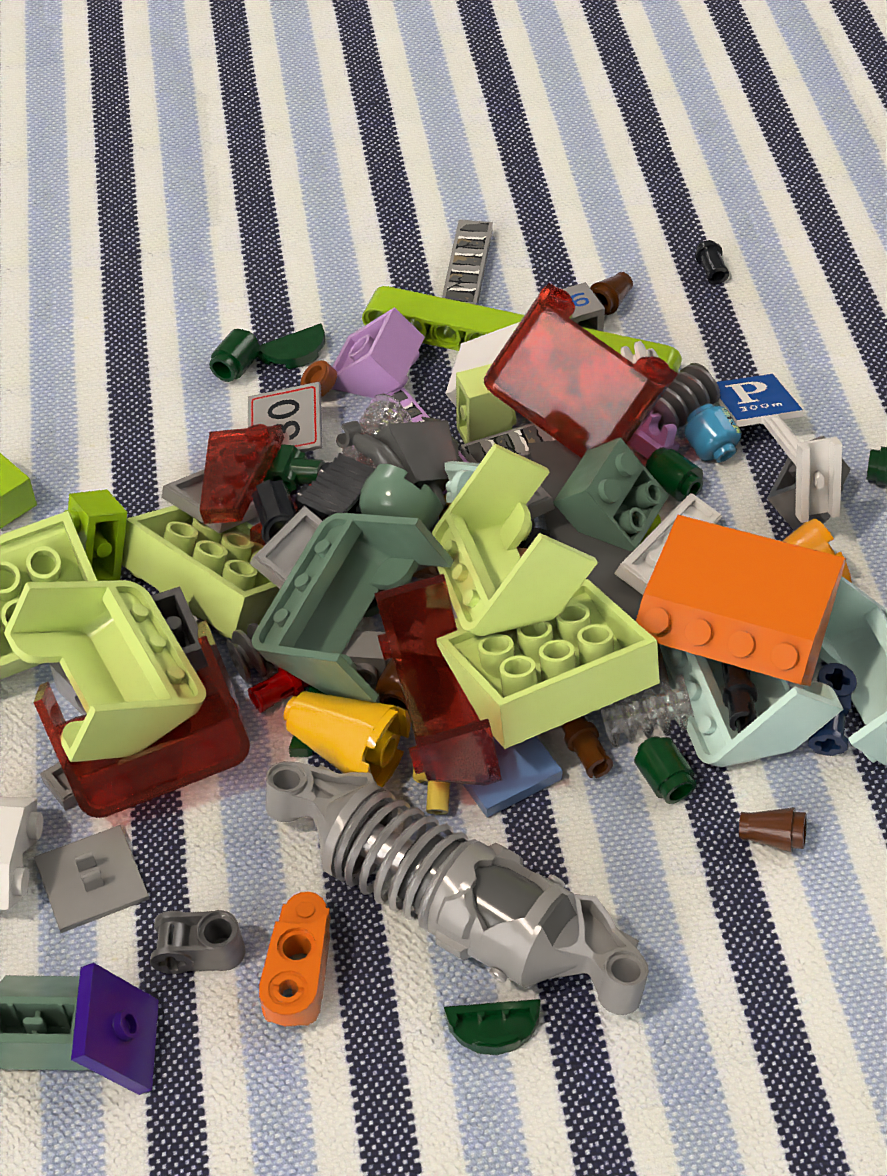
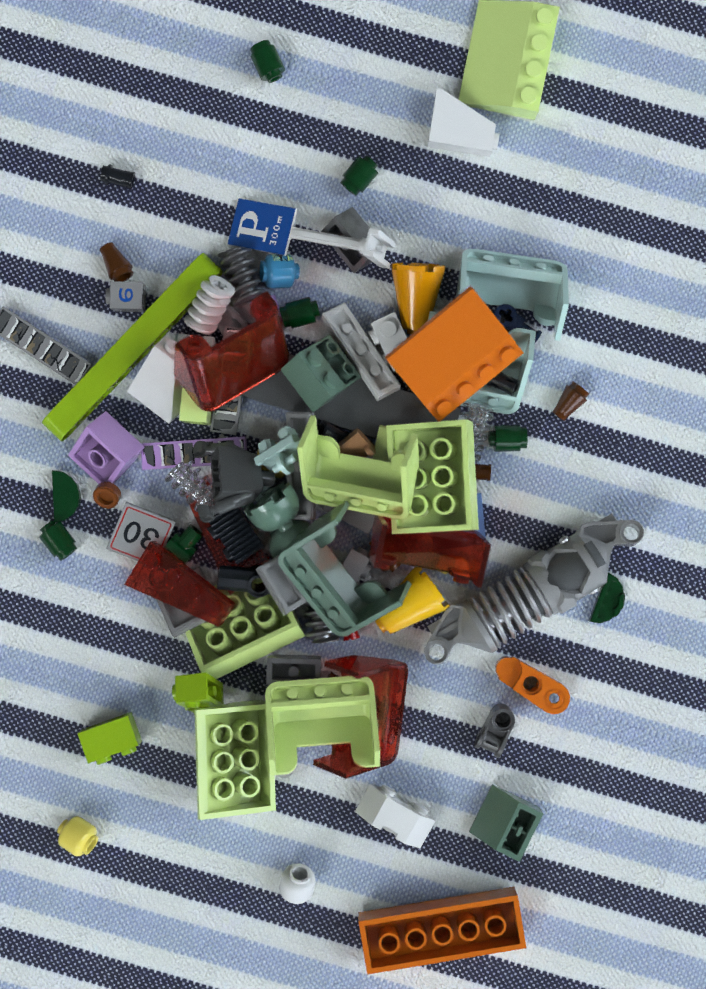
camera: 65 degrees left, 40 degrees up
(91, 878) = (424, 768): light grey piece -> none
(115, 1029) = (535, 790): dark purple plate -> none

